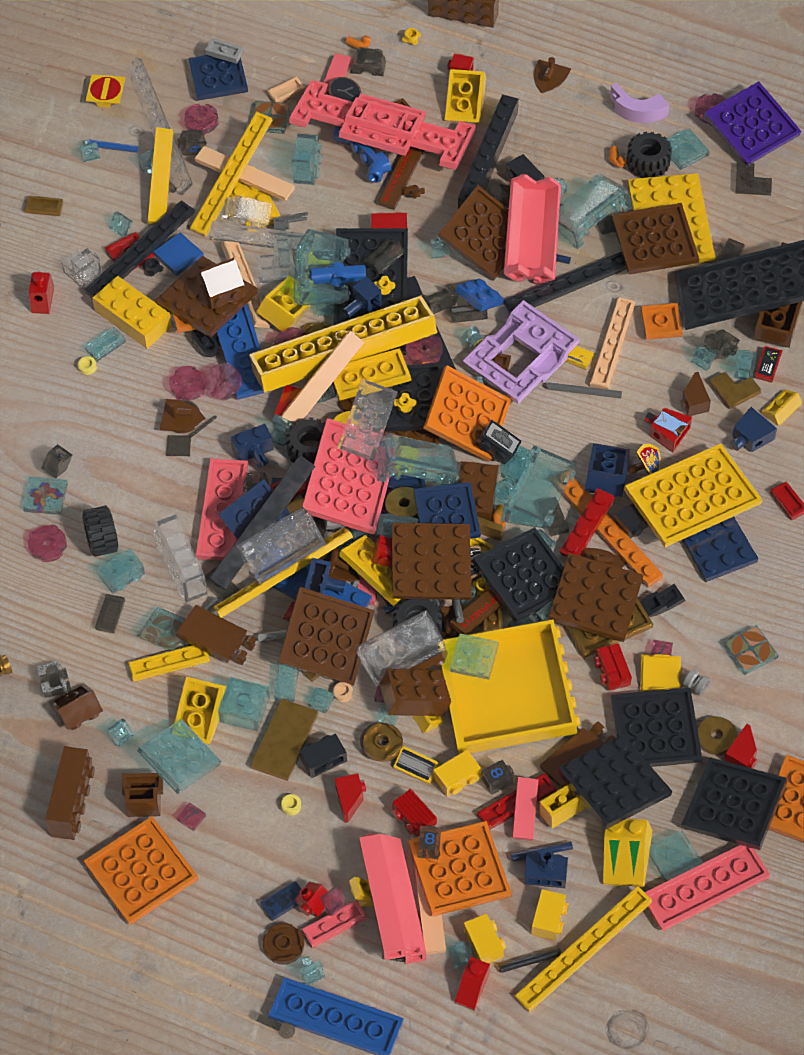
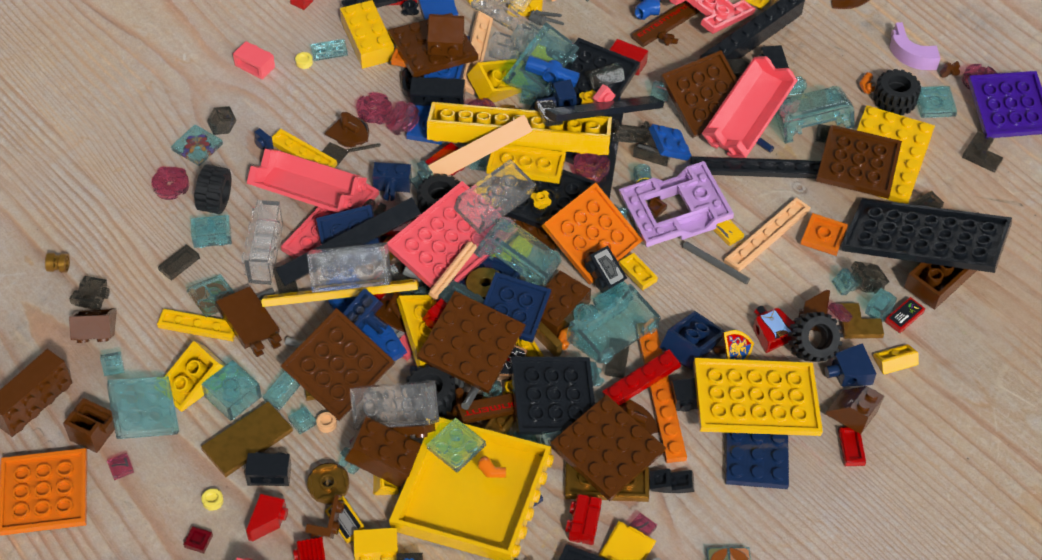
camera: 25 degrees right, 5 degrees down
(41, 387) = (254, 60): none -> coral piece
(107, 462) = (263, 140): none -> dark blue plate
(151, 456) = (292, 145): none -> yellow plate
(180, 483) = (307, 181): none -> coral panel
(243, 341) = (429, 90): none -> black brick
(303, 843) = (198, 539): none -> dark red tile
(364, 317) = (541, 106): none -> clear smoke tile
(372, 505) = (452, 270): none -> light nougat axle
(398, 281) = (603, 94): none -> coral plate
(402, 786) = (333, 525): none -> reddish brown bracket
(408, 290) = (603, 108): none -> black tile
(515, 663) = (490, 470): none -> orange arm
(525, 429) = (638, 271): none -> yellow plate
(681, 110) = (950, 69): none -> reddish brown piece
(698, 422) = (829, 332): none -> black tyre
(717, 387) = (840, 312): none -> clear pink tile
(775, 465) = (856, 407): none -> reddish brown slope

